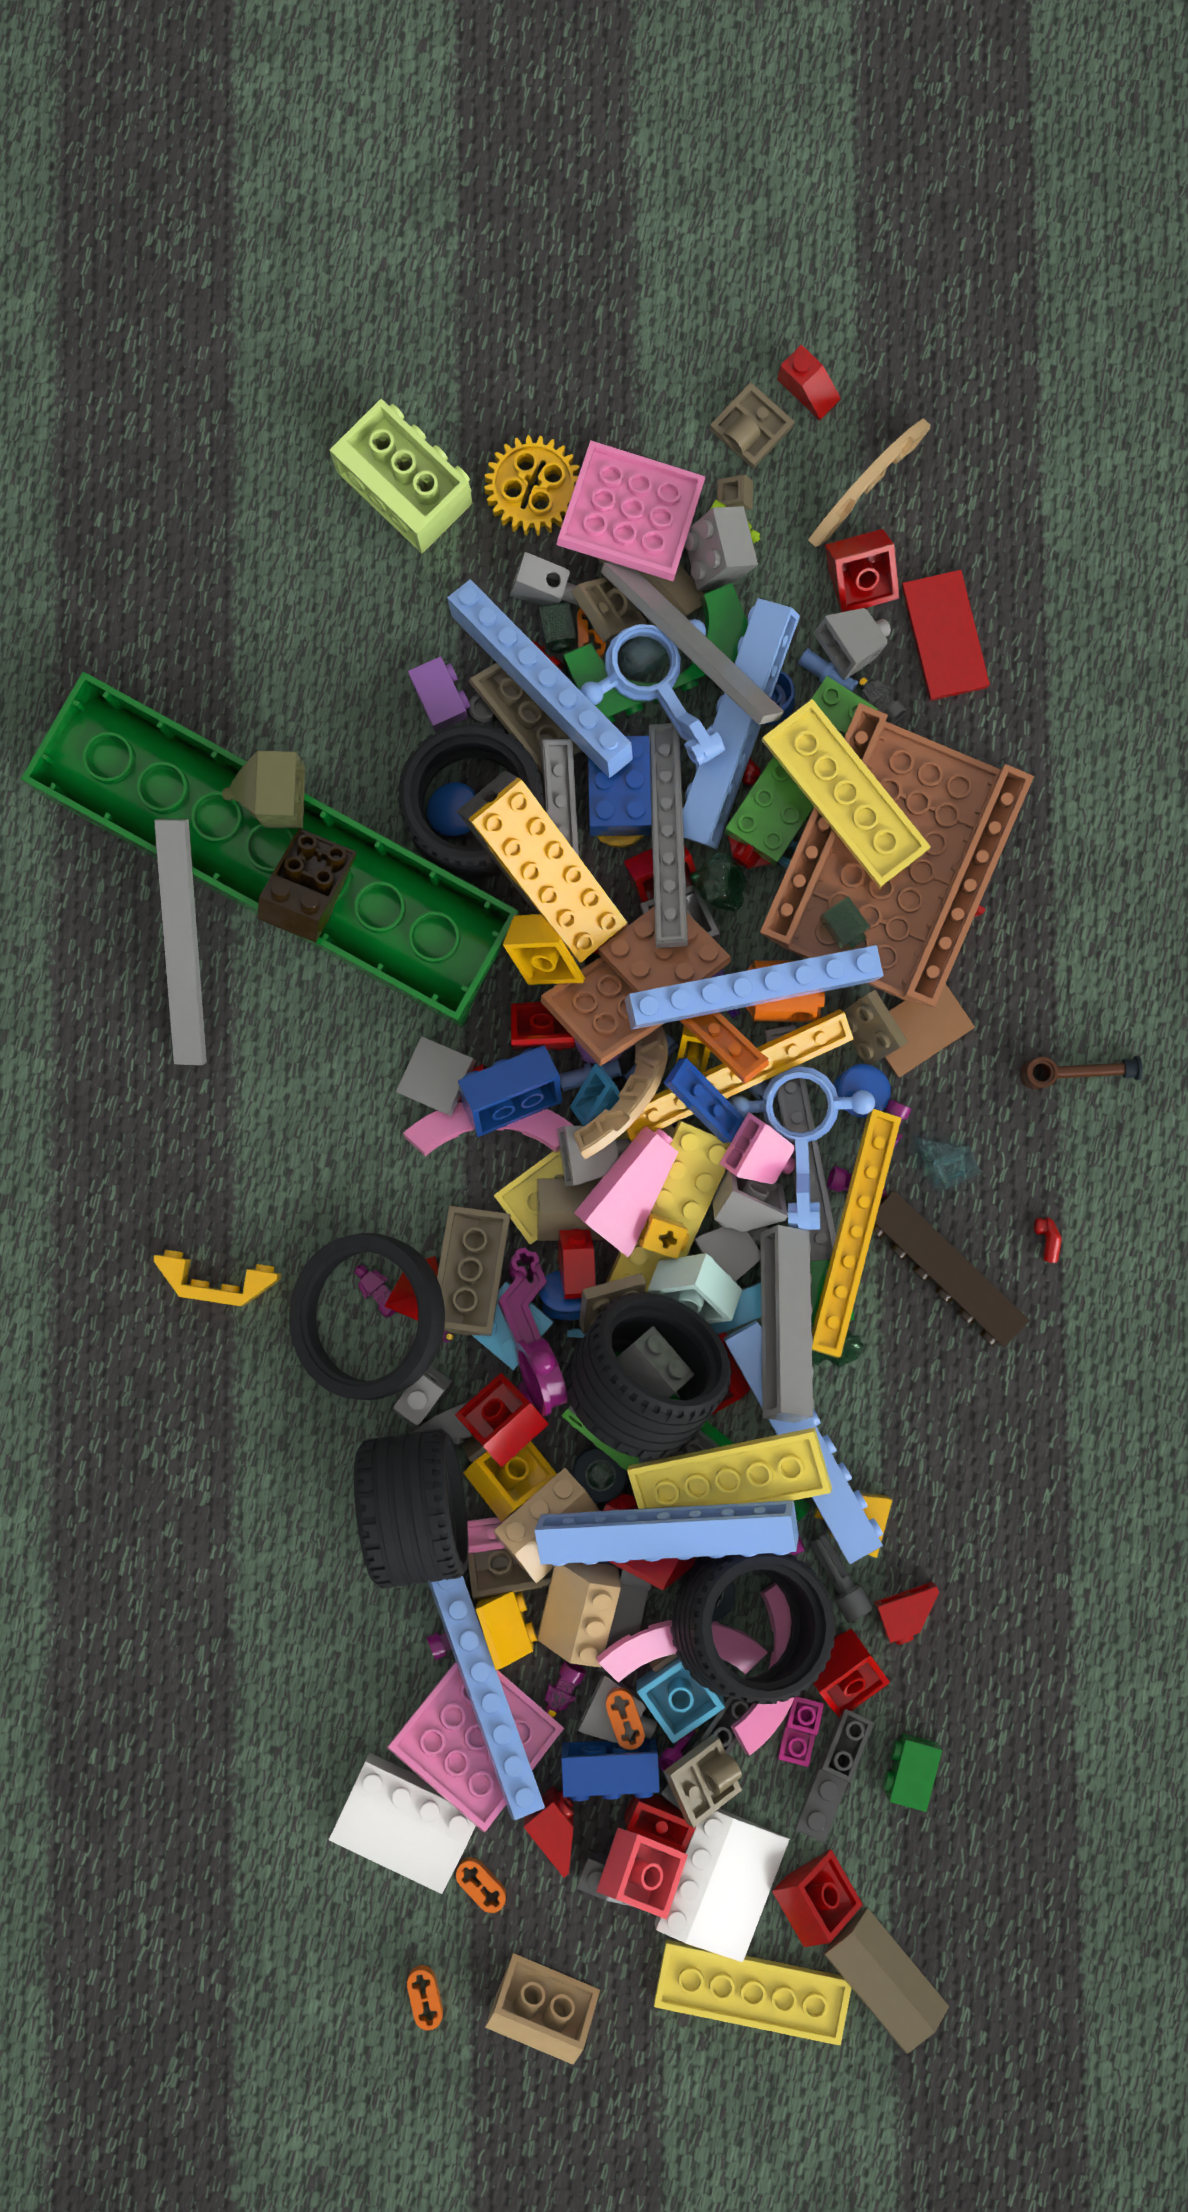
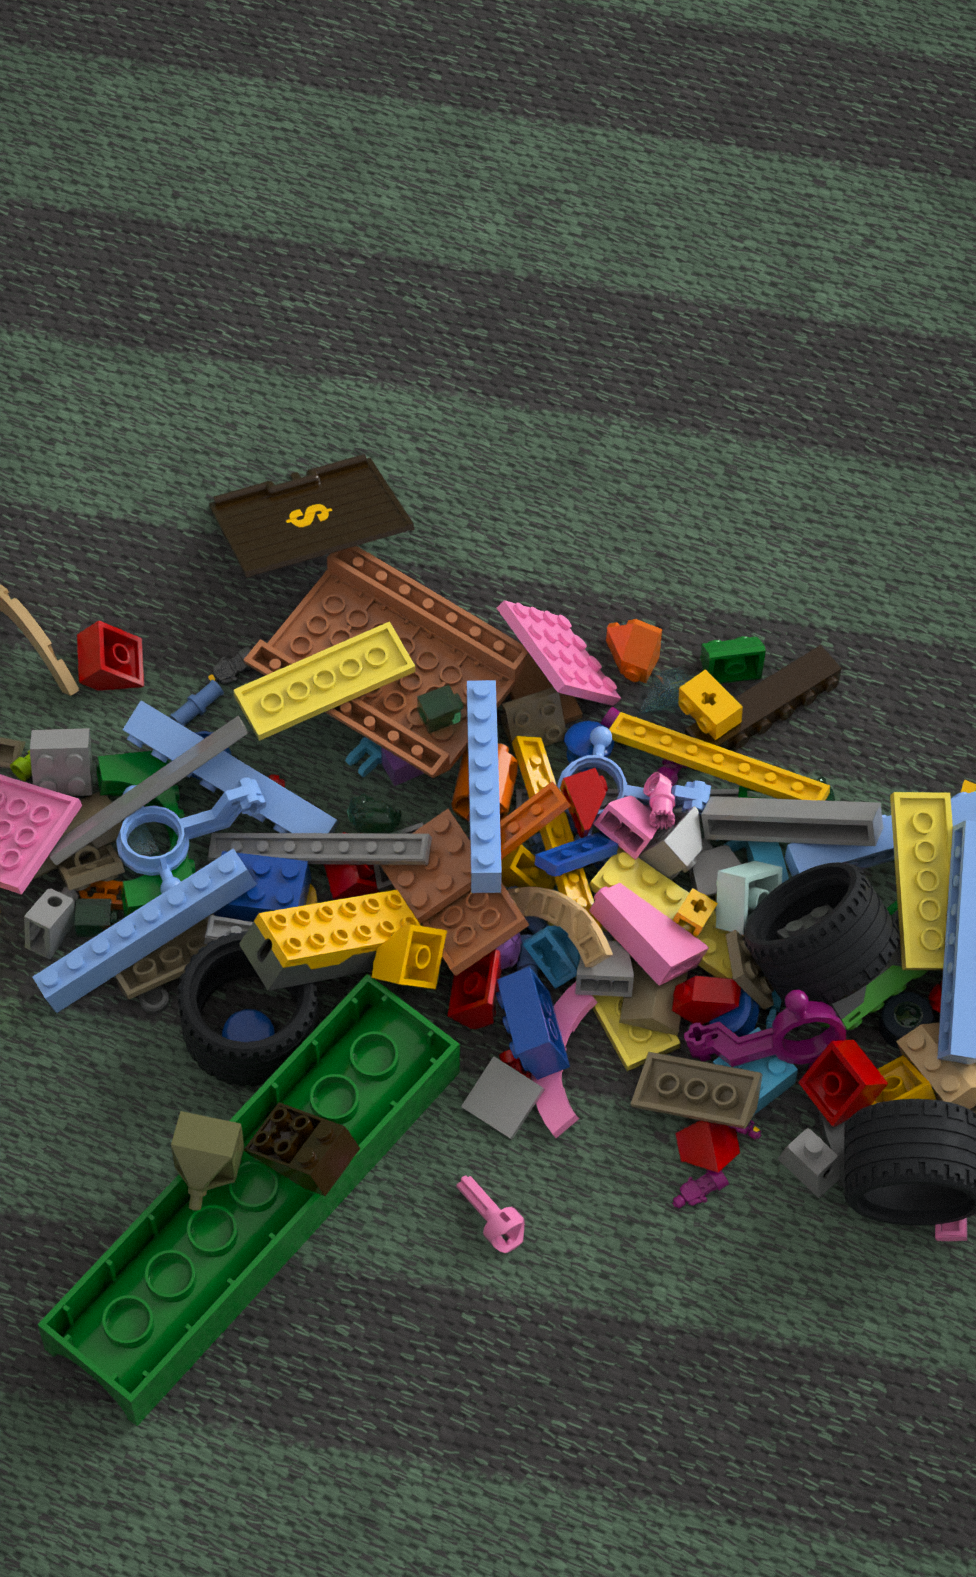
camera: 80 degrees left, 25 degrees down
(176, 1271) = (652, 1367): yellow slope -> none
(180, 940) = (327, 1289): light grey tile -> none
(304, 1307) = (725, 1257): black tyre -> none
(307, 1089) = (499, 1222): none -> bright pink piece
(438, 693) = (132, 1031): medium lavender brick -> none
(774, 1099) = (585, 795): none -> red slope
(775, 804) = (303, 755): bright green piece -> none
(789, 1178) = (661, 800): none -> bright pink connector
(852, 639) = (174, 675): light grey torso -> none
(938, 1204) = (710, 705): none -> yellow brick
(945, 635) = (186, 607): red tile -> none
(951, 1038) = (559, 653): none -> bright pink plate
(983, 1120) = (634, 648): none -> orange slope
(996, 1227) = (734, 659): none -> green slope
(1052, 1237) = (748, 620): red arm -> none
(1067, 737) = (309, 515): none -> dark brown door
(1127, 1068) = (602, 592): reddish brown piece -> none

